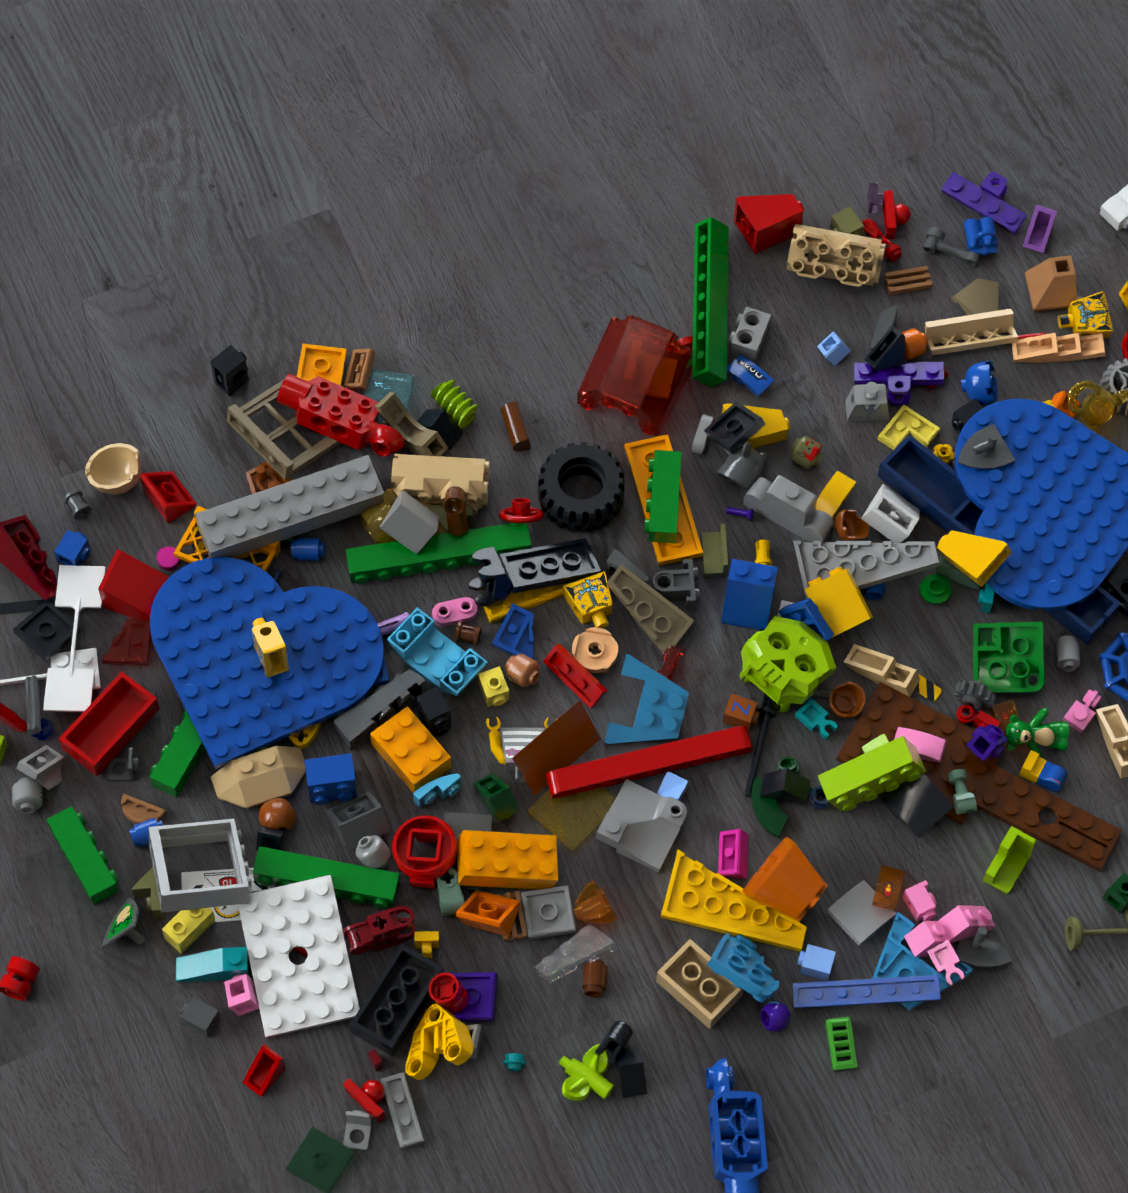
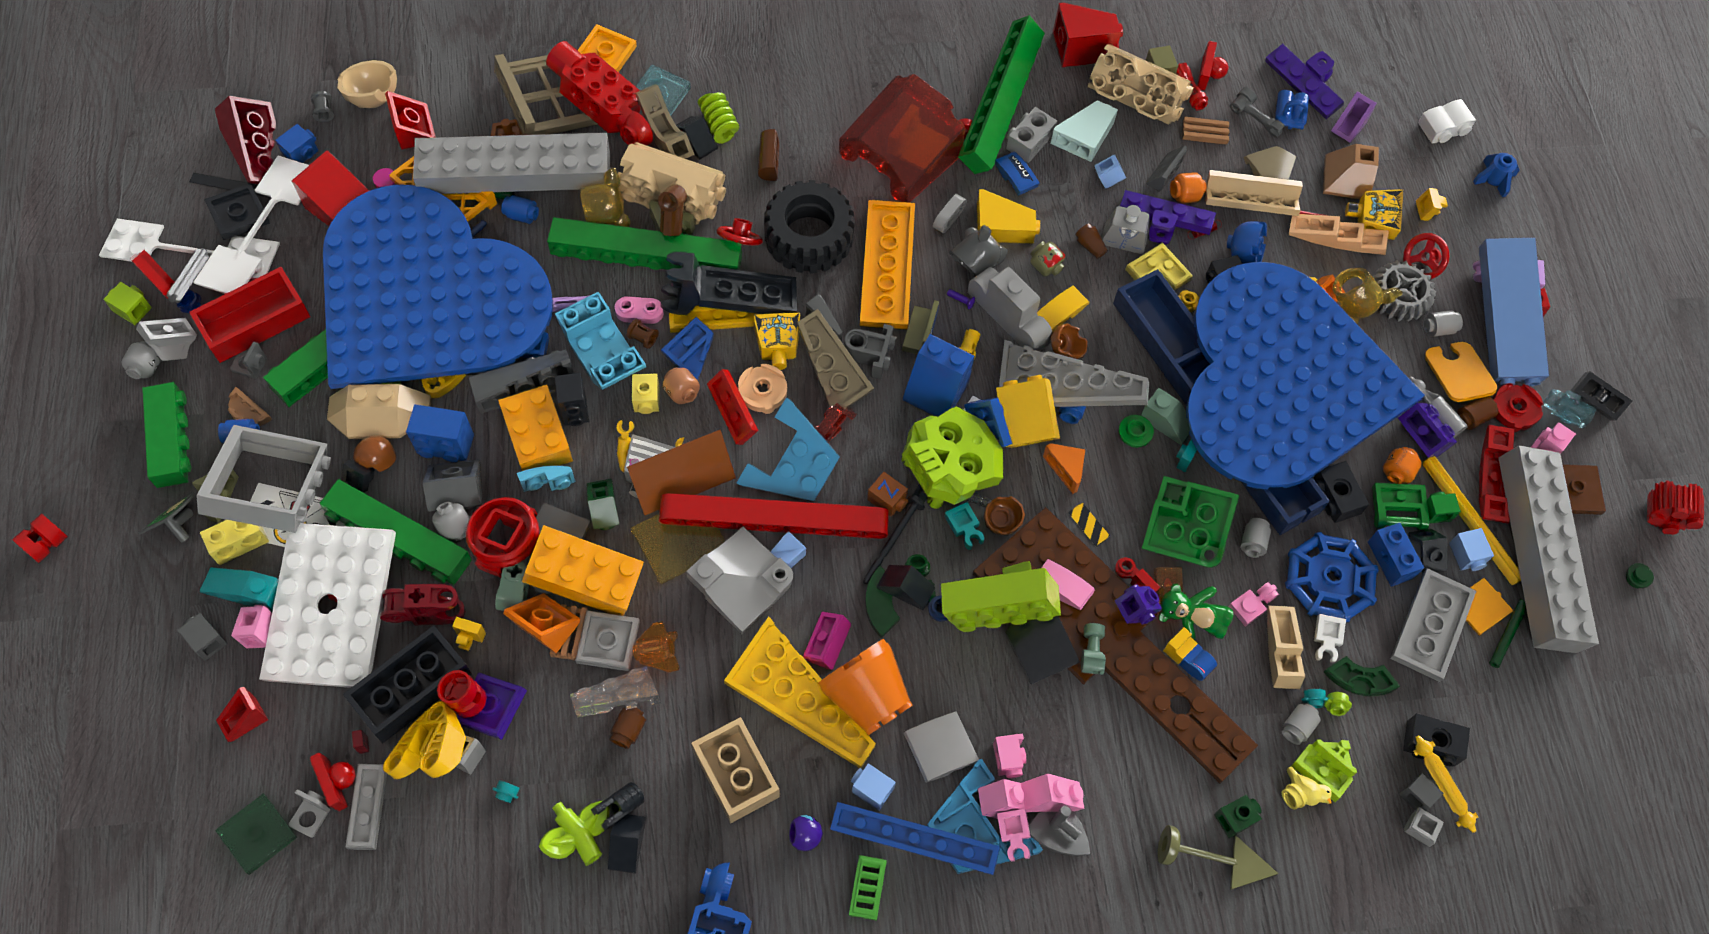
camera: 15 degrees right, 0 degrees up
(131, 644) = (306, 249): clear red wing -> none
(230, 370) = (516, 26): black brick -> none
(268, 641) = (427, 272): yellow torso -> none
(363, 369) = (641, 62): medium nougat tile -> none
(410, 522) = (622, 207): light grey slope -> none
(664, 496) = (887, 258): green brick -> none
(734, 427) = (981, 210): black plate -> none
(742, 965) = (787, 766): dark azure plate -> none
(798, 315) = (1085, 130): none -> light aqua slope
(839, 422) = (1091, 240): none -> reddish brown cone
(874, 198) = (1197, 47): clear purple plate -> none
(882, 669) = (1052, 494): tan slope -> none
(885, 637) = (1066, 463): none -> orange slope
(888, 351) = (1164, 185): black slope -> none
(888, 888) = (979, 728): clear orange slope -> none
(891, 515) = (1113, 343): white slope -> none
(973, 554) = (1186, 404): yellow slope -> none
(974, 694) = (1141, 550): dark grey gear -> none
(985, 450) = (1232, 304): dark grey shield -> none
(1010, 860) = (1123, 740): lime panel -> none

